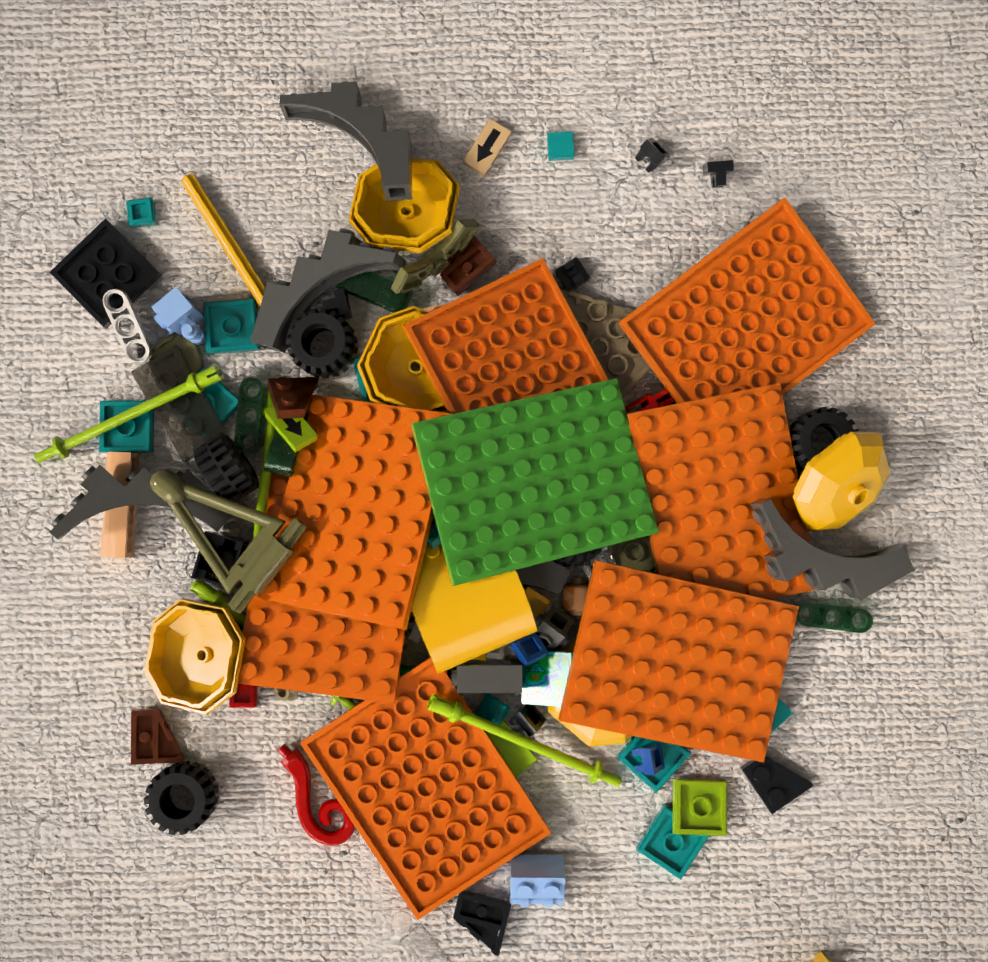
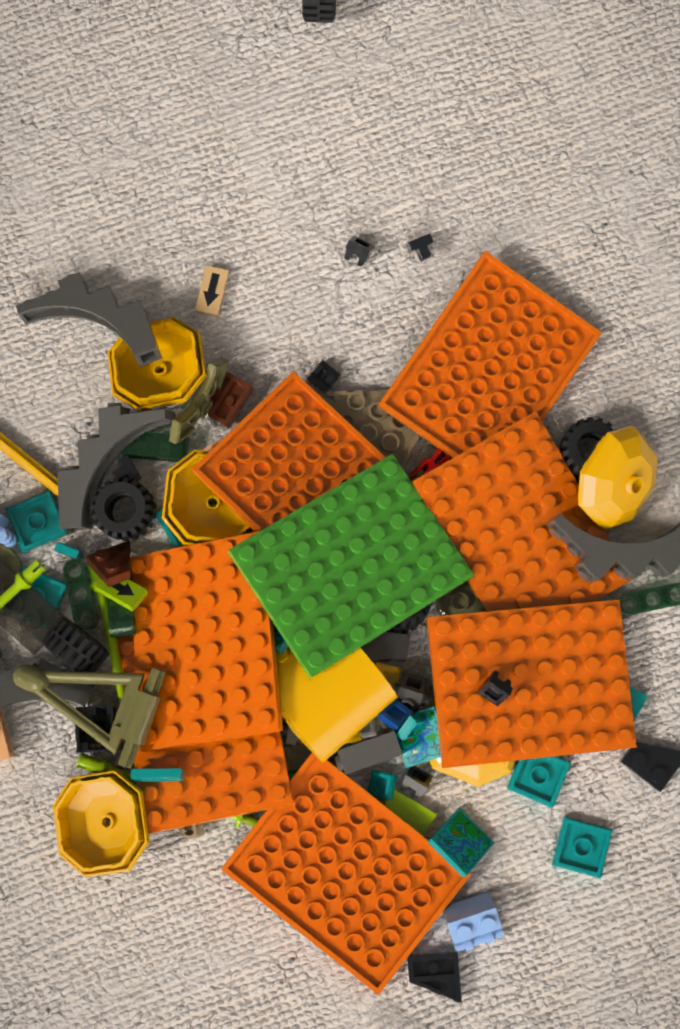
camera: 20 degrees left, 5 degrees down
(152, 739) = (86, 913): copper wing -> none
(163, 809) = (114, 971): black tyre -> none
(245, 697) = (157, 847): red tile -> none
(252, 367) = (68, 551): none -> teal tile
(265, 628) = (158, 775): none -> teal tile
(299, 770) = (228, 897): red plant -> none
(454, 712) = (350, 793): lime bar -> none
(540, 666) = (411, 726): none -> teal tile
(552, 797) = (461, 842): none -> tile
(560, 146) = (275, 269): teal tile -> none
(575, 595) = (420, 657): medium nougat head -> none
(640, 659) = (495, 689): none -> black tile
(651, 758) = (536, 776): blue tile -> none
(699, 807) = (594, 807): lime tile -> none

